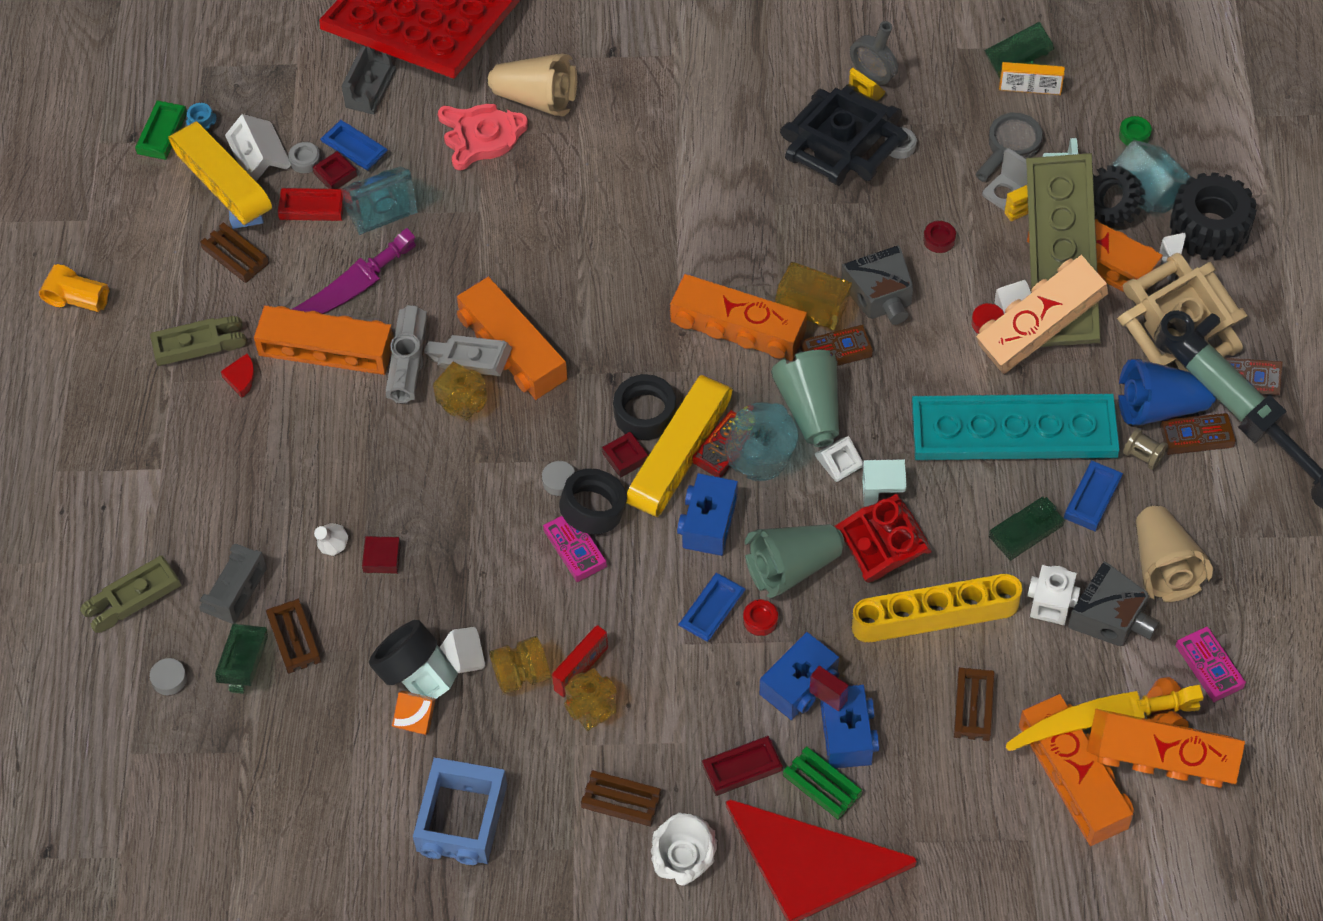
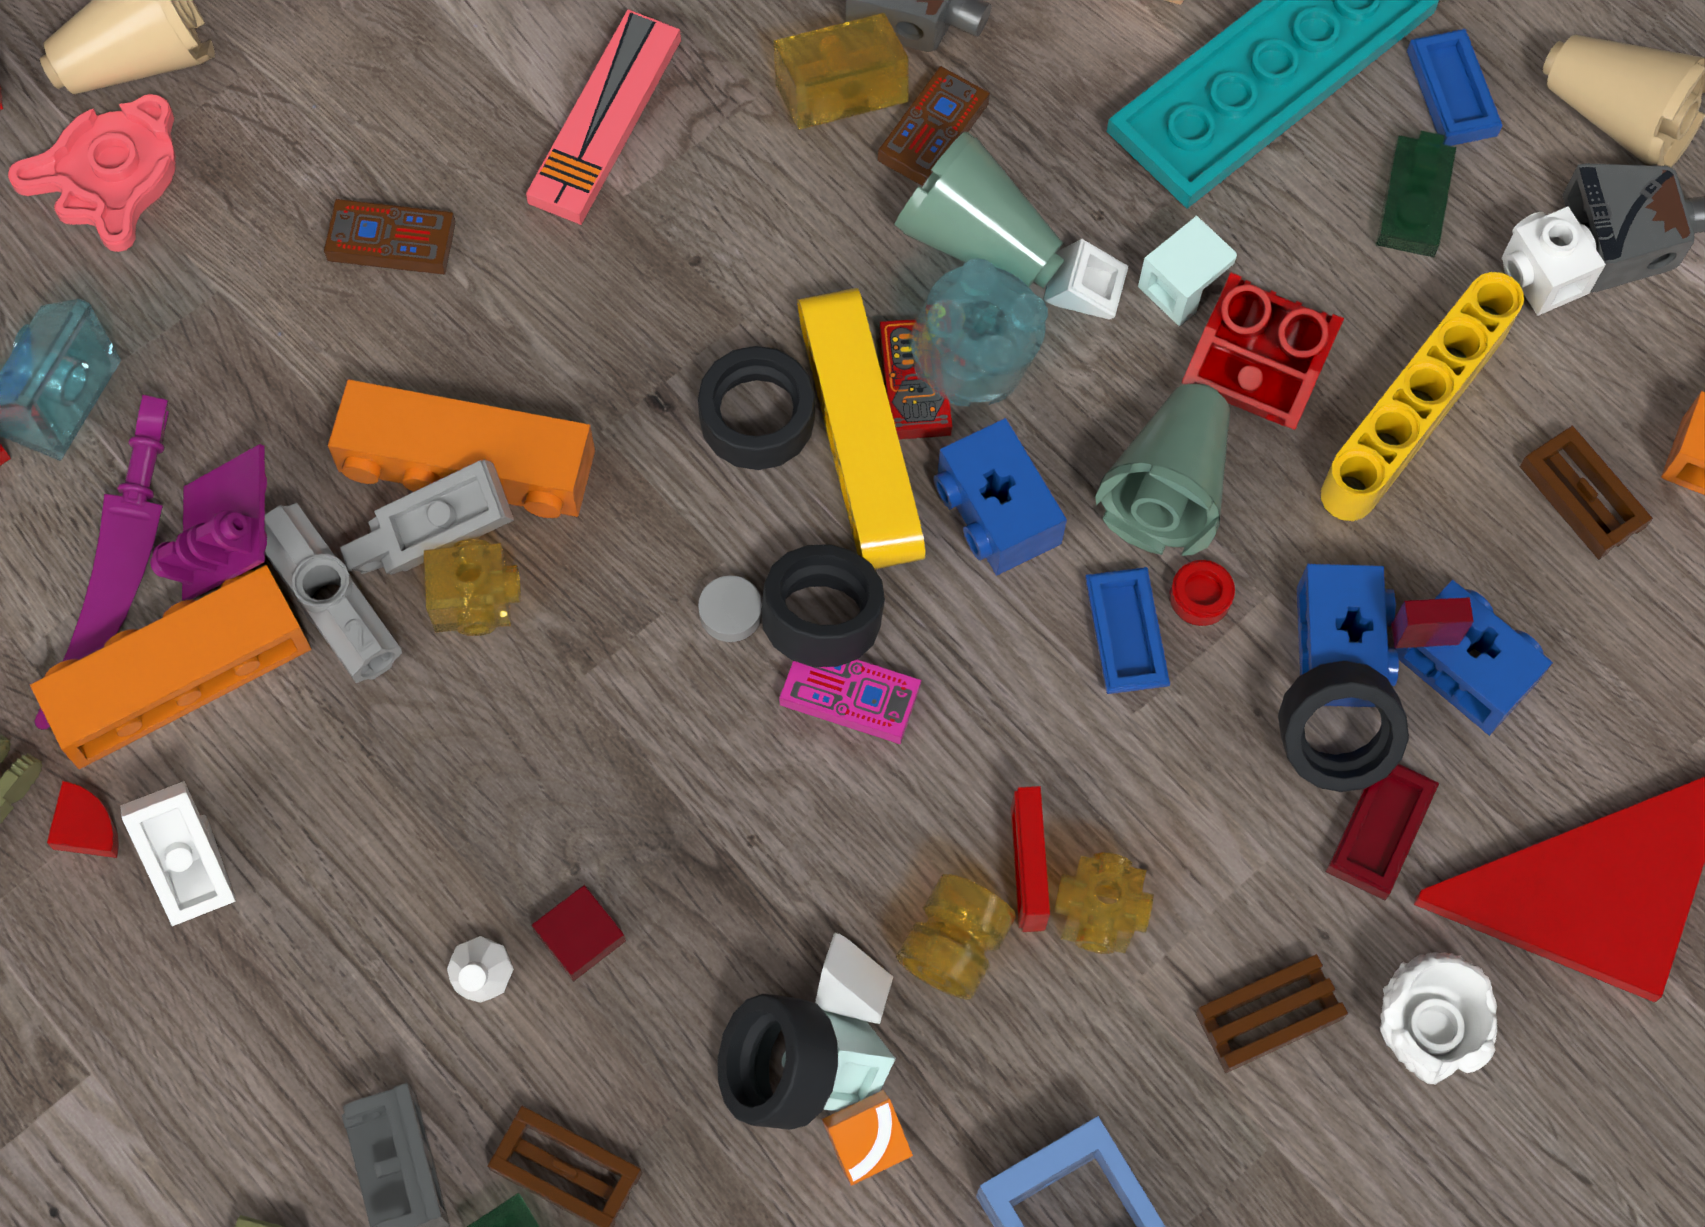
camera: 45 degrees left, 10 degrees up
(261, 409) = (178, 853): none -> white slope
(386, 302) = (220, 527): none -> magenta hinge
(565, 236) = (390, 236): none -> reddish brown tile
(624, 454) = (790, 500): dark red tile -> none
(699, 248) = (603, 117): none -> coral tile
(734, 715) = (1352, 769): none -> black tyre
(738, 317) = (763, 178): orange brick -> none
(830, 772) = (1508, 739): green tile -> none

